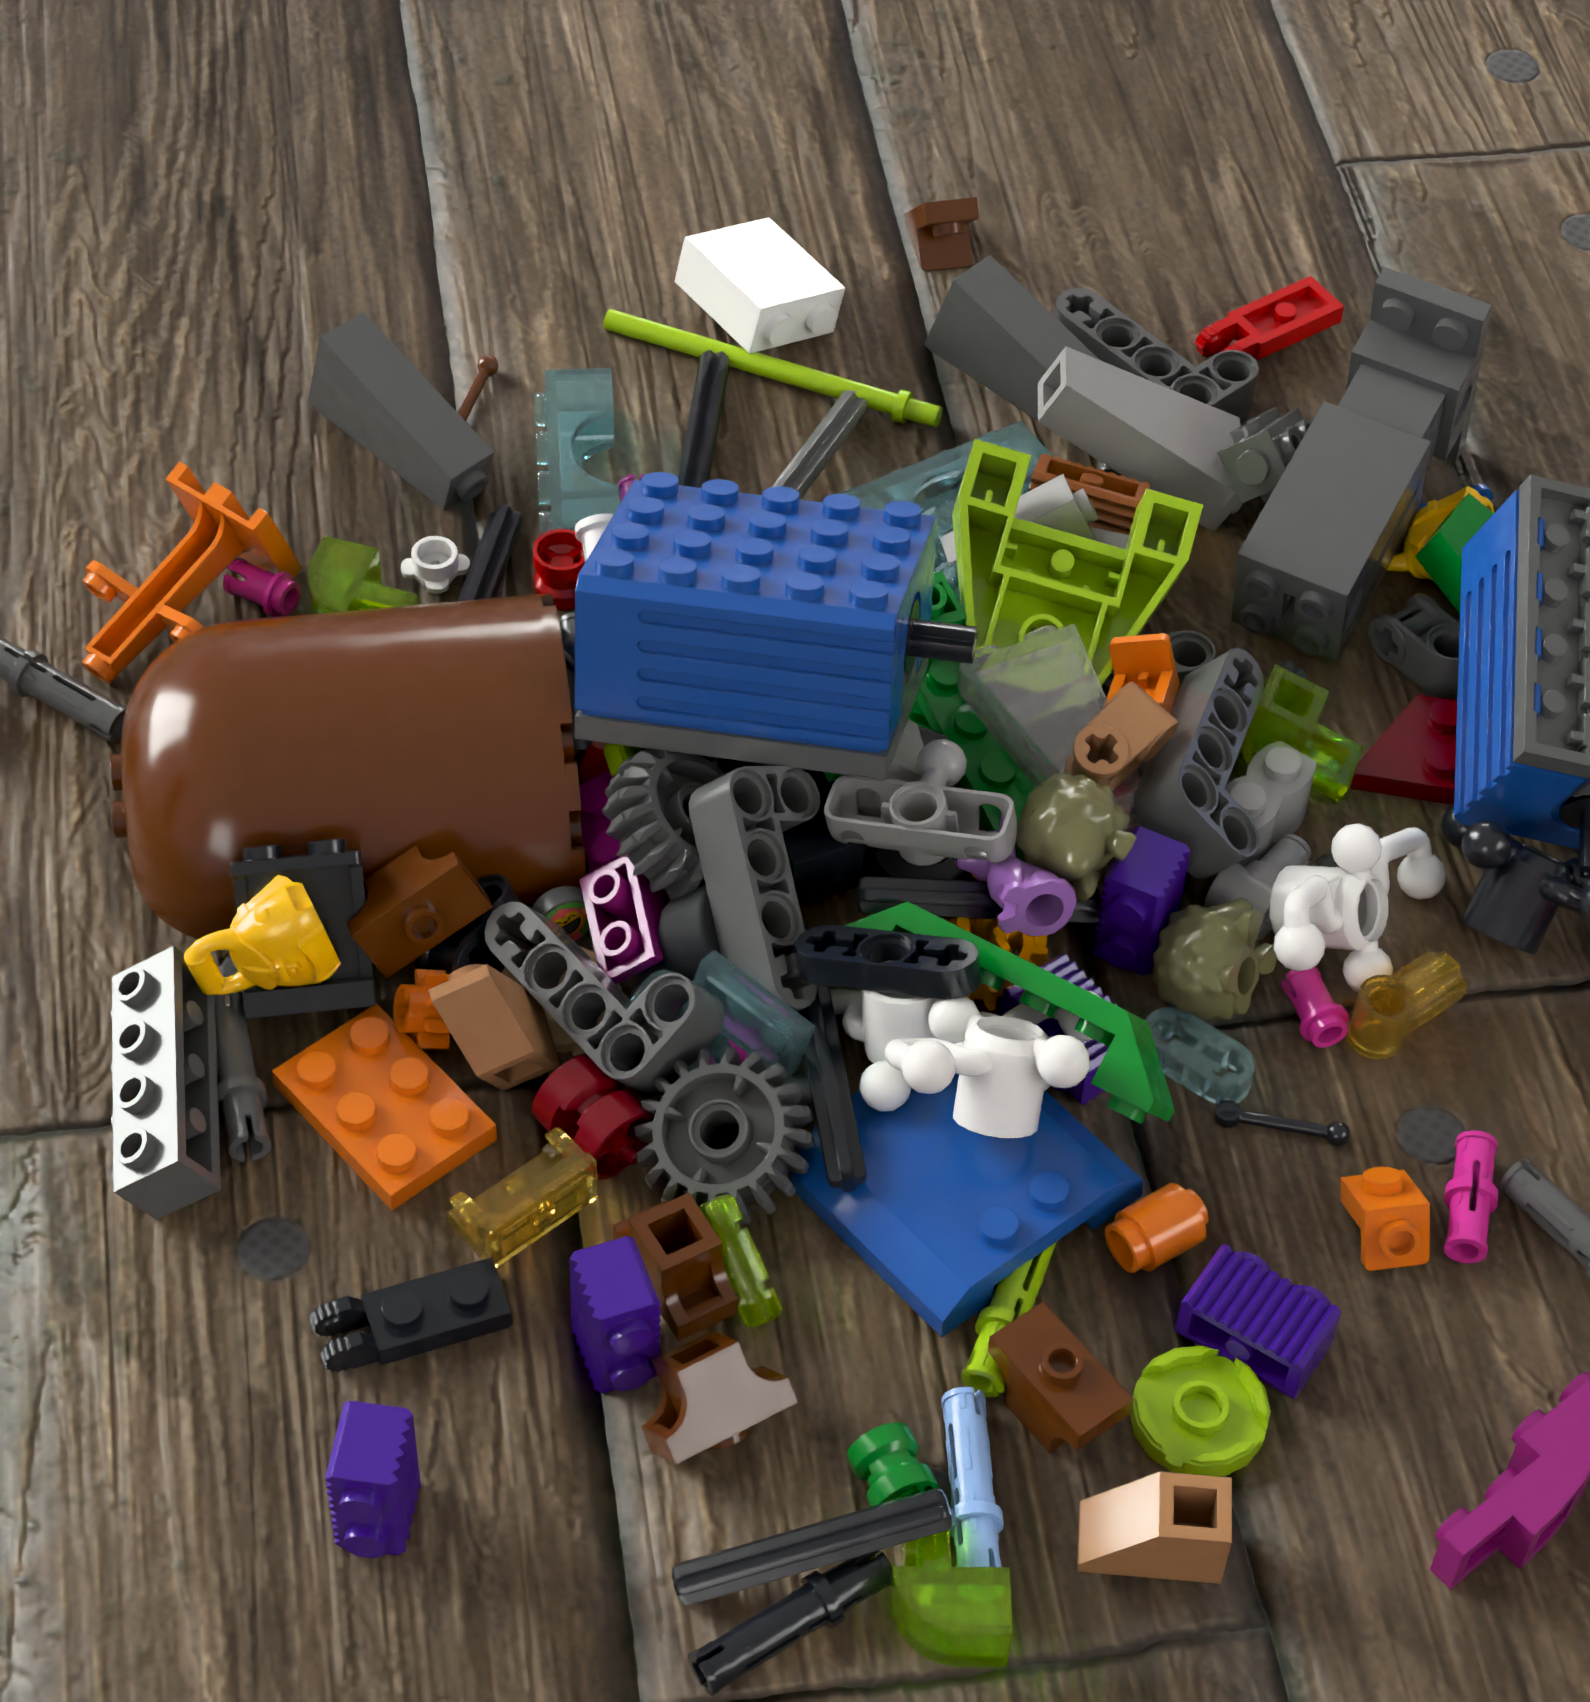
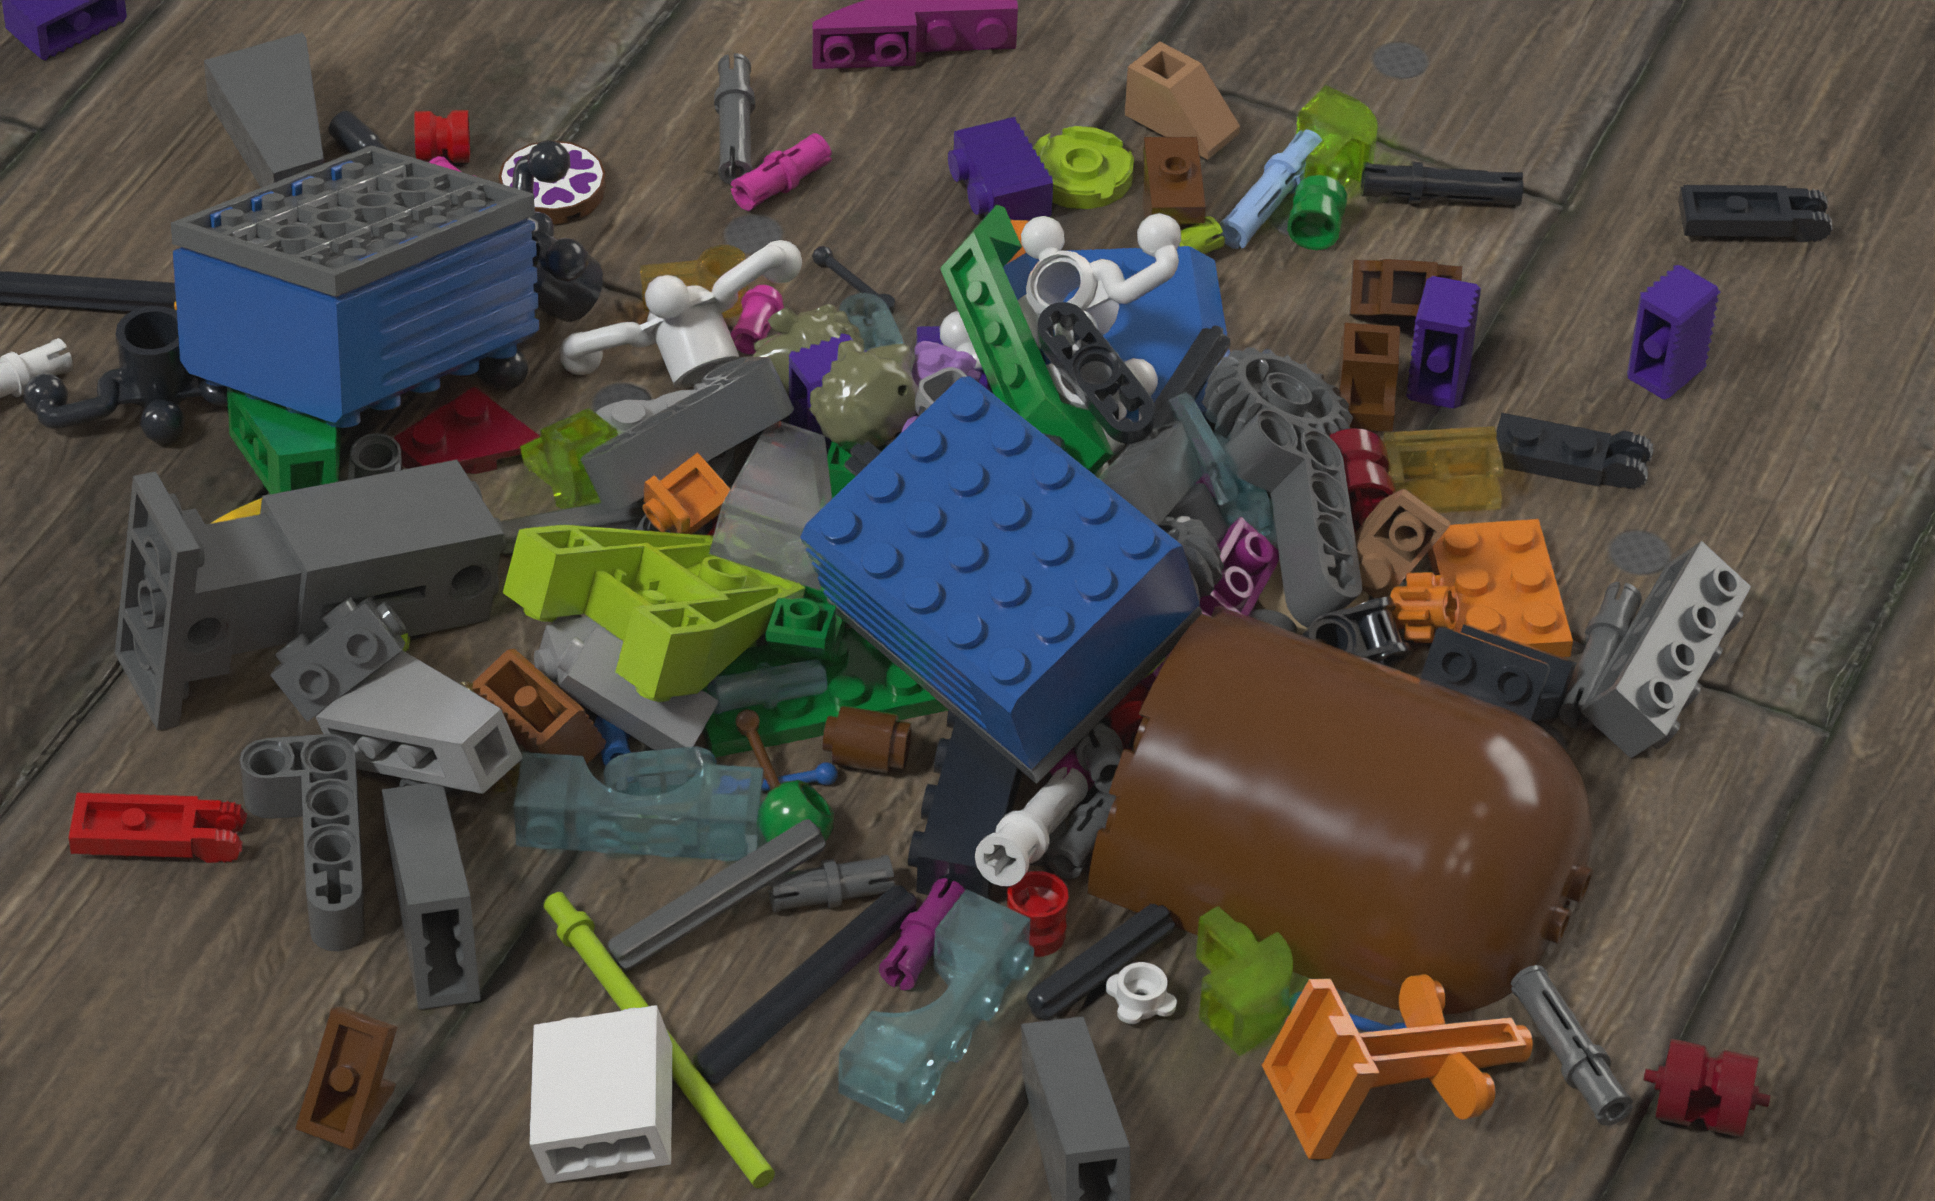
camera: 145 degrees left, 5 degrees down
(270, 942) = (1539, 629): yellow piece -> none
(415, 907) = (1392, 627): reddish brown brick -> none
(487, 367) = (1010, 1139): reddish brown hinge -> none
(742, 1262) = (1325, 348): clear neon green axle -> none
(812, 1546) = (1409, 184): black axle -> none
(1121, 737) = (783, 429): medium nougat piece -> none
(1390, 1216) = (847, 188): orange bracket -> none

